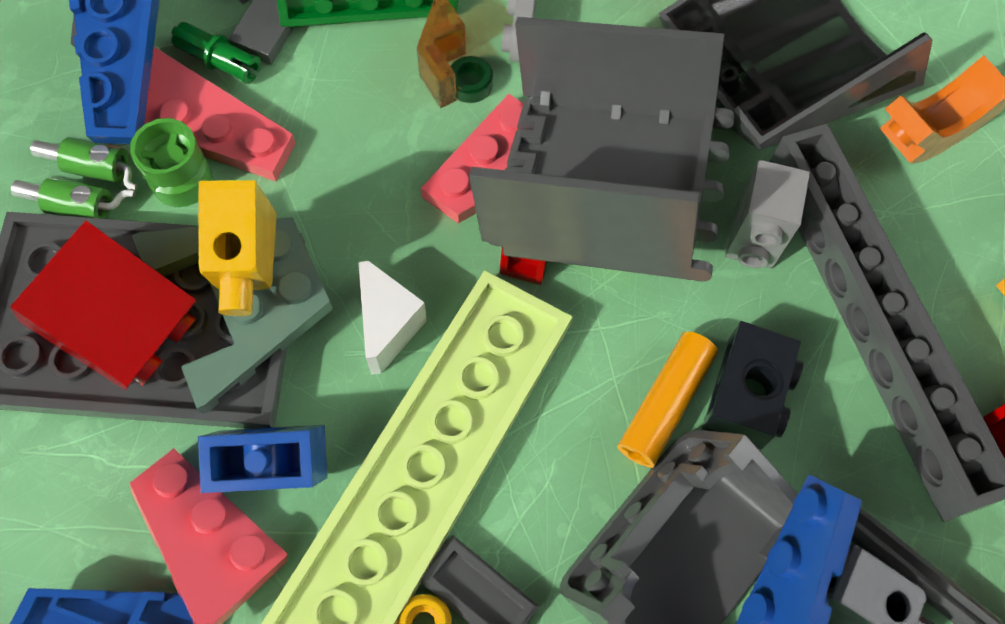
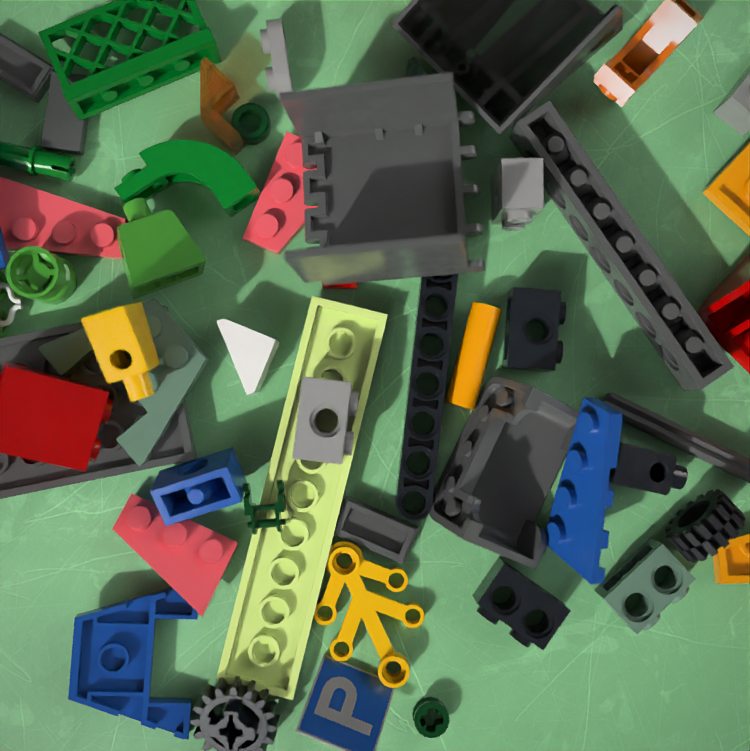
camera: 15 degrees left, 20 degrees up
(317, 171) = (156, 249): none -> bright green torso
(321, 507) = (251, 509): none -> dark green piece
(384, 95) = (194, 163): none -> green arch
(455, 383) = (311, 441): none -> light grey brick
(595, 439) = (433, 404): none -> black beam

